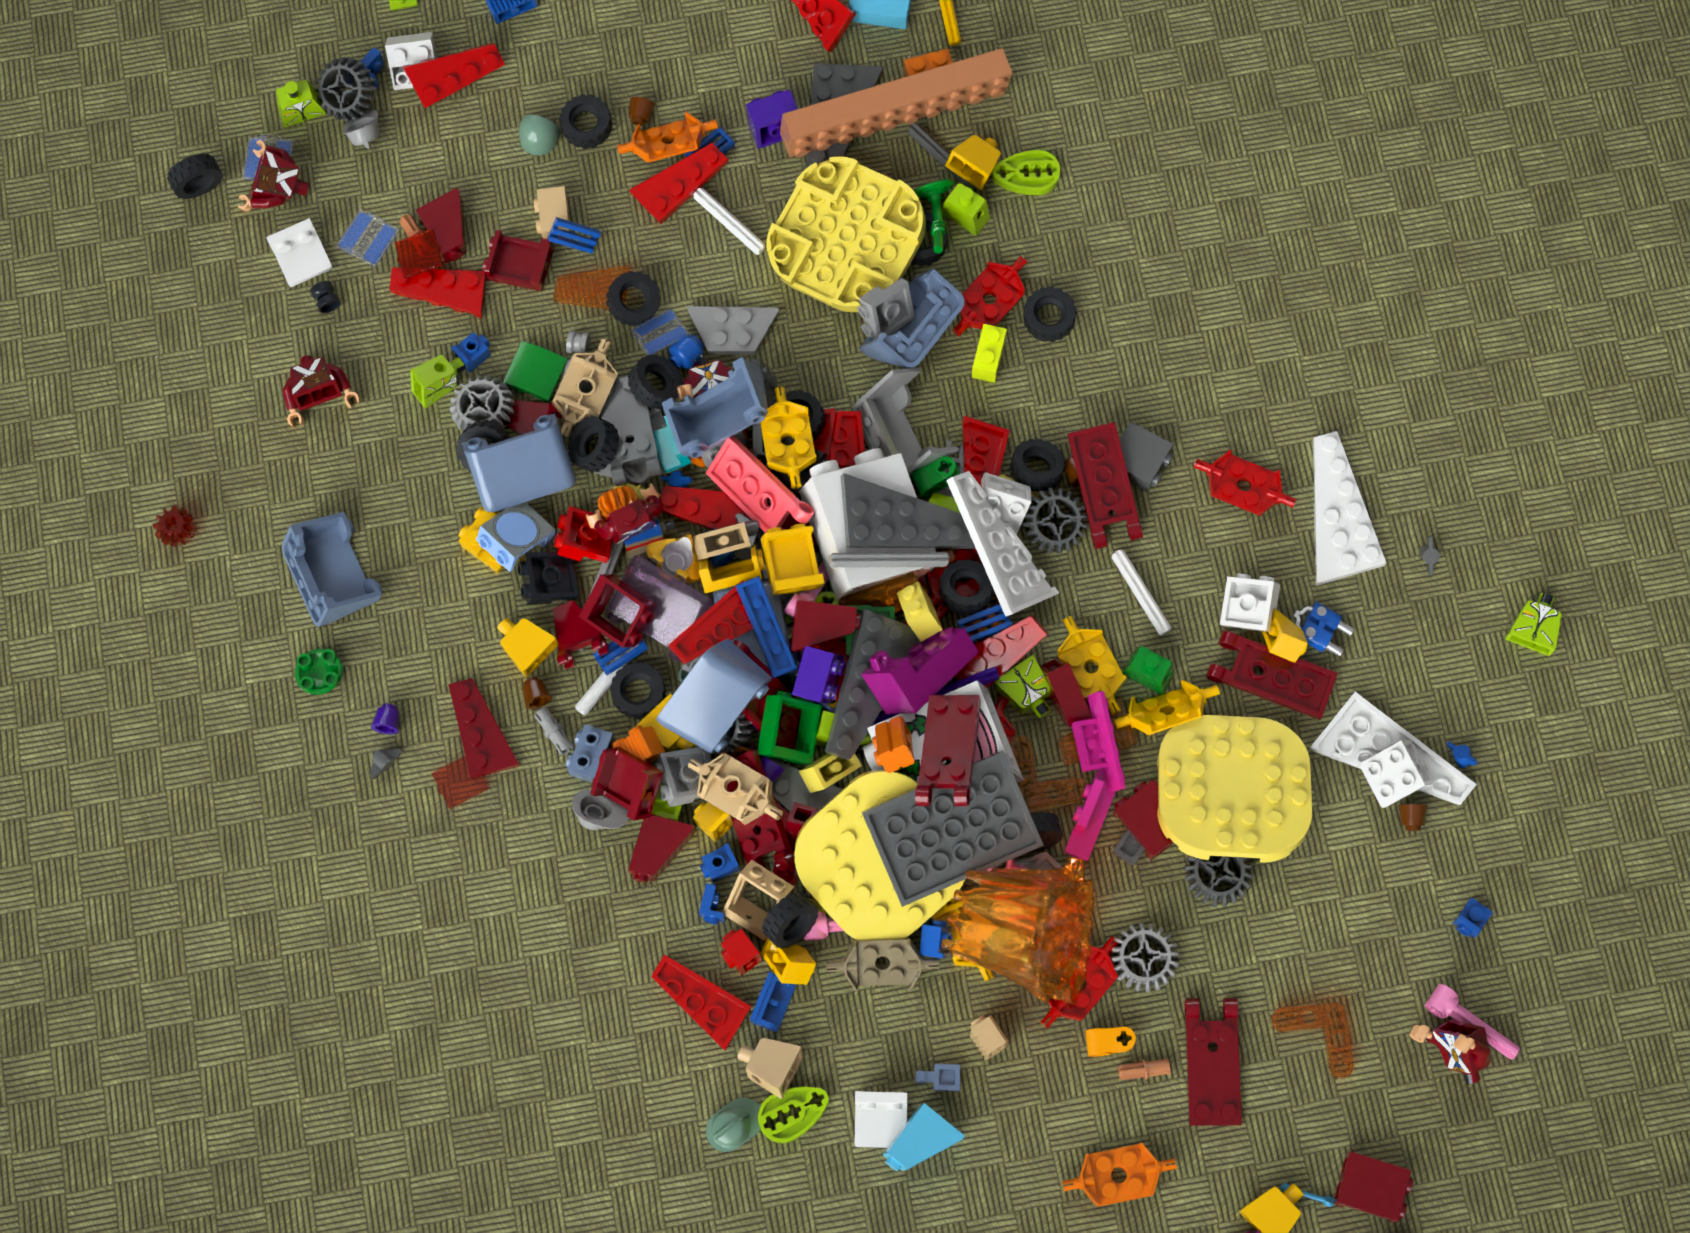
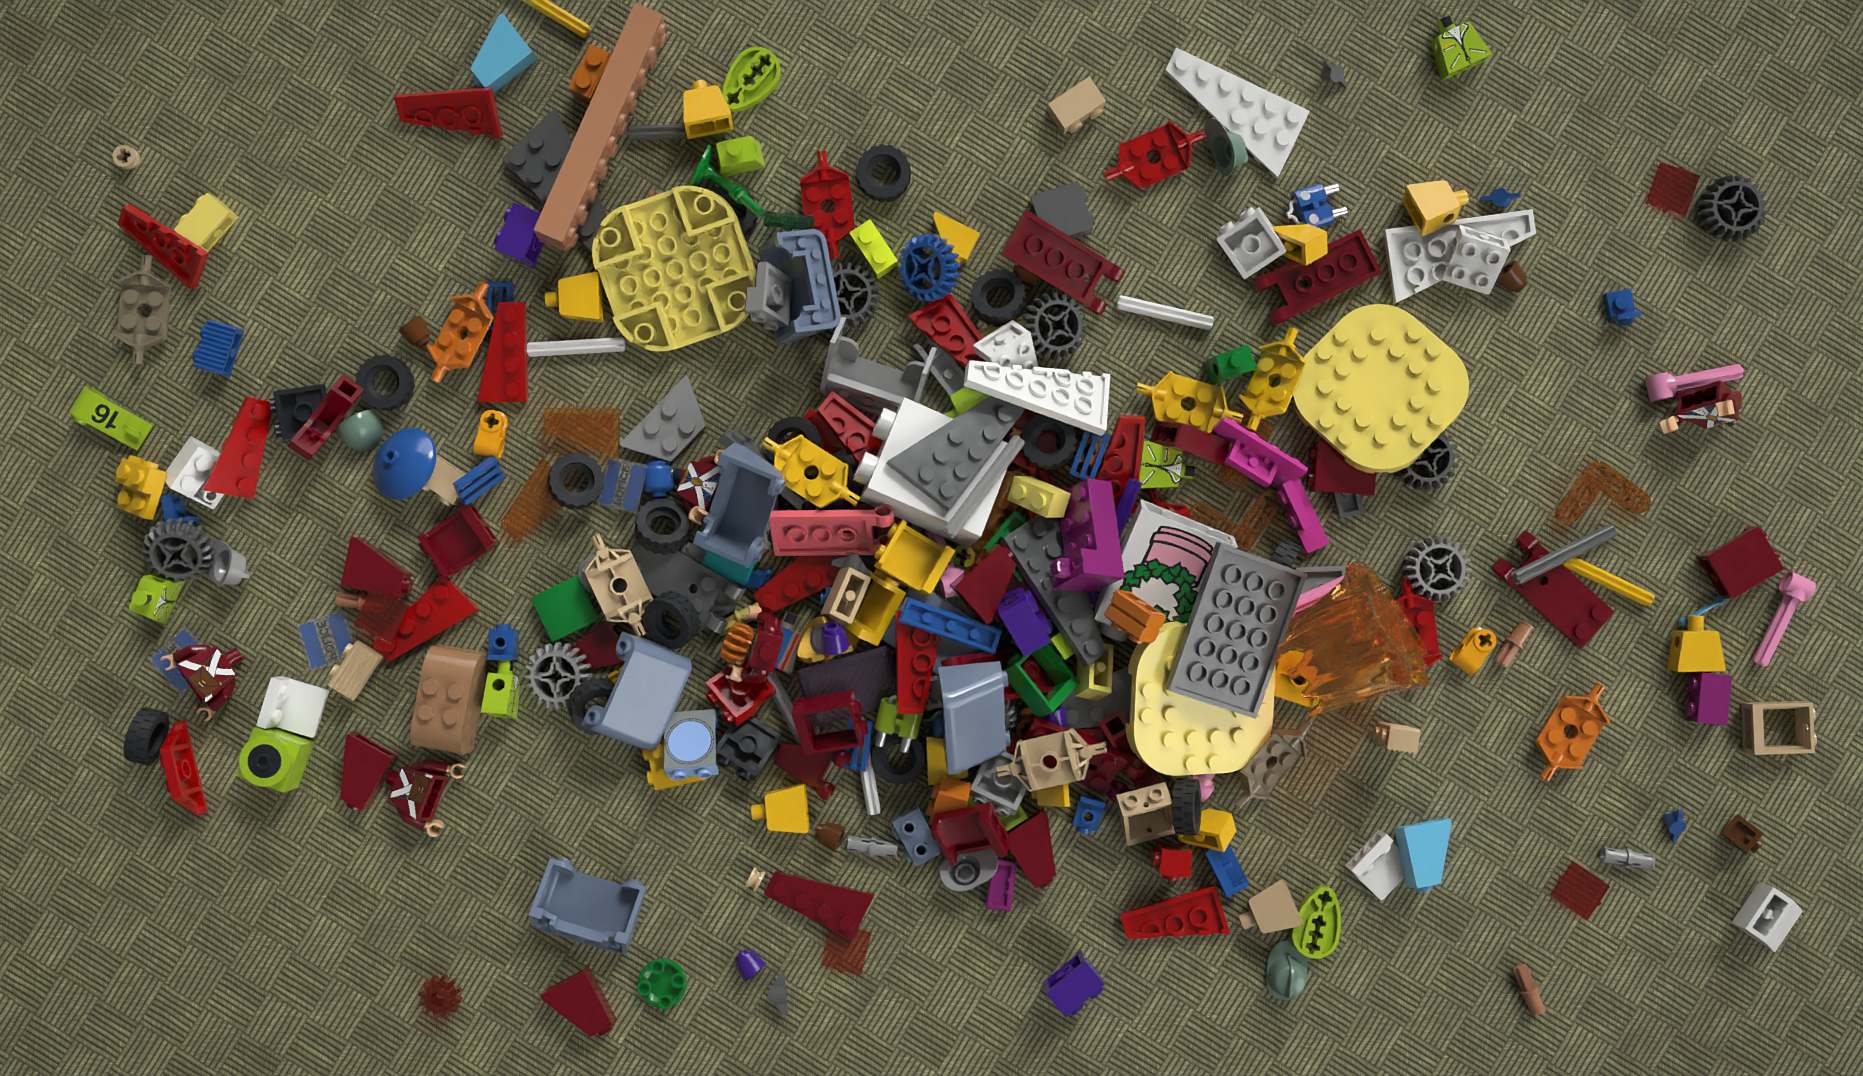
camera: 50 degrees left, 15 degrees up
(189, 220) = (181, 769): none -> red wing
(252, 270) = (274, 758): none -> lime piece
(255, 626) = (581, 1003): none -> dark red slope
(295, 338) = (364, 770): none -> dark red slope
(325, 297) = (349, 718): black wheel -> none
(364, 270) = (354, 670): none -> tan brick
(369, 31) = (141, 486): none -> yellow plate
(396, 344) = (449, 699): none -> medium nougat brick
(454, 668) = (755, 879): none -> tan bush
(514, 86) = (295, 408): none -> black plate
(518, 103) = (326, 418): none -> dark red arch
(540, 178) = (404, 463): none -> blue dish
(577, 342) = (572, 555): light grey wheel -> none
(581, 963) = (1073, 984): none -> dark purple brick
(608, 848) = (1001, 886): none -> magenta plate
(613, 219) = (491, 437): none -> light orange piece
(665, 662) = (889, 722): none -> lime piece
(679, 276) = (586, 427): none -> clear orange wing
(682, 556) = (833, 639): none -> dark purple hat
(709, 901) = (1109, 845): blue bracket -> none
(765, 192) = (579, 297): none -> yellow torso
(932, 937) = (1292, 709): blue brick -> none
(933, 477) = (938, 388): green piece -> none
(944, 1078) = (1391, 792): sand blue plate -> none
(949, 736) = (1172, 571): dark red hinge -> none
(953, 376) = (858, 293): none -> dark grey gear
(954, 278) = (789, 220): none -> clear green pin
(1016, 402) = (937, 269): none -> blue gear
(1051, 402) = (960, 236): none -> yellow slope
(1226, 400) = (1076, 106): none -> tan brick
(1246, 1041) = (1564, 554): none -> dark grey axle
(1260, 1097) = (1610, 581): none -> yellow axle
(1302, 527) = (1225, 146): none -> sand green piece
(1406, 709) = (1433, 205): none -> yellow torso
(1597, 879) = (1672, 189): none -> clear red piece
(1621, 924) = (1743, 199): none -> dark grey gear

